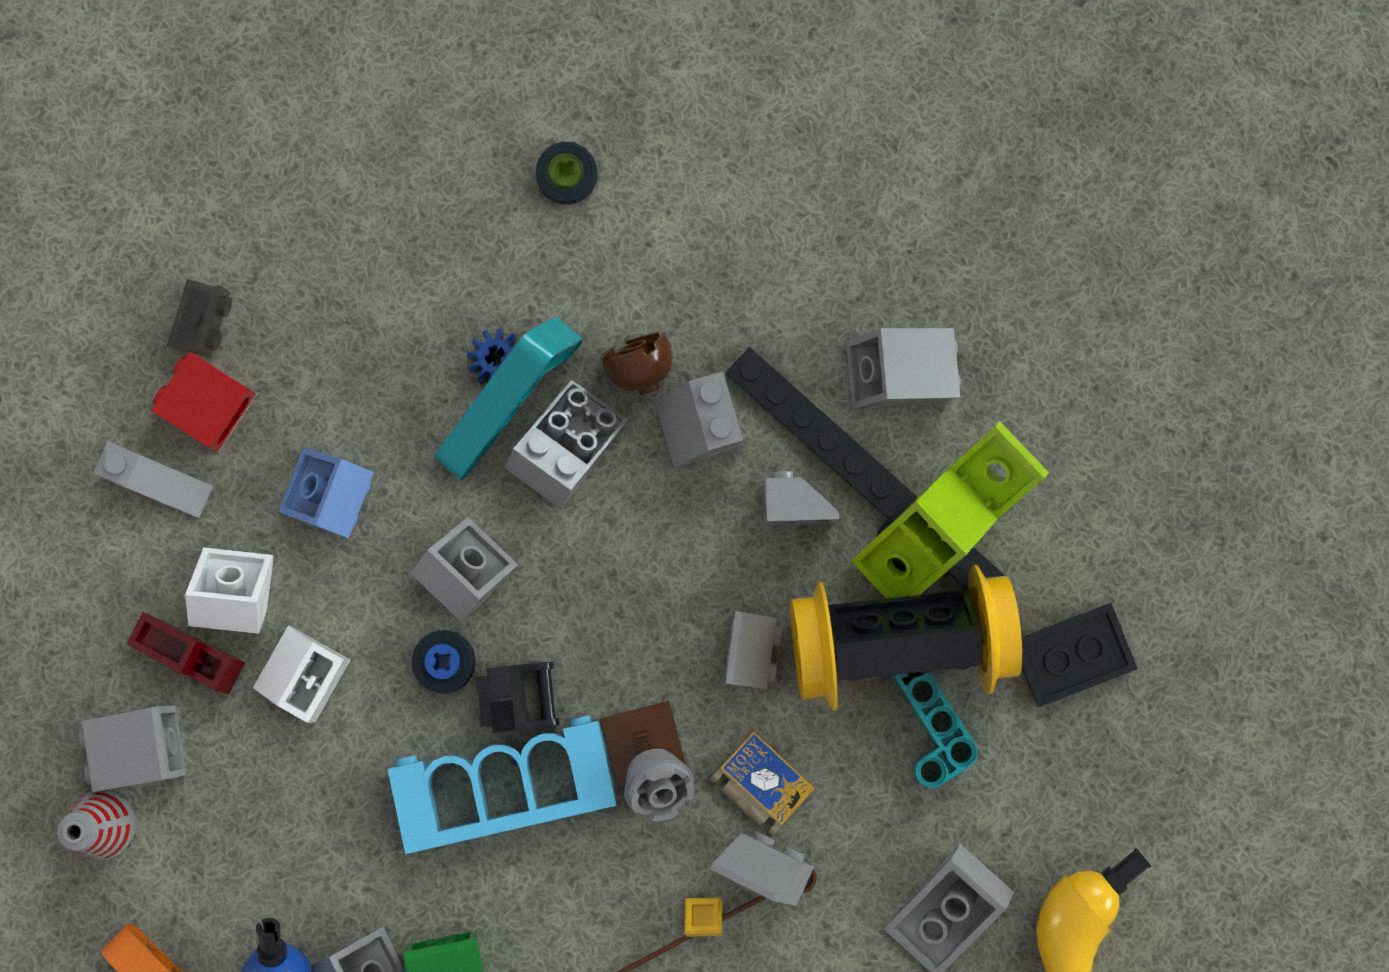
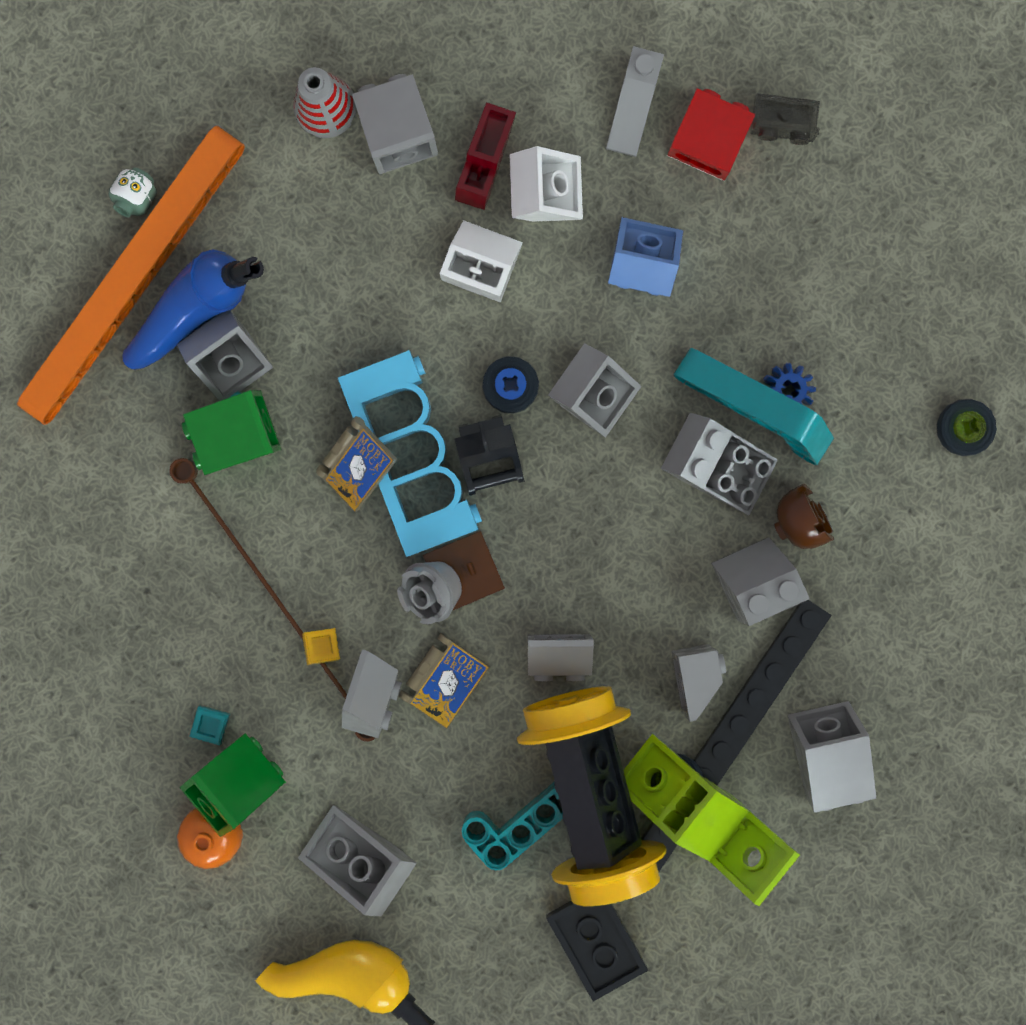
camera: 80 degrees right, 5 degrees up
(505, 846) = (356, 464): none -> piece

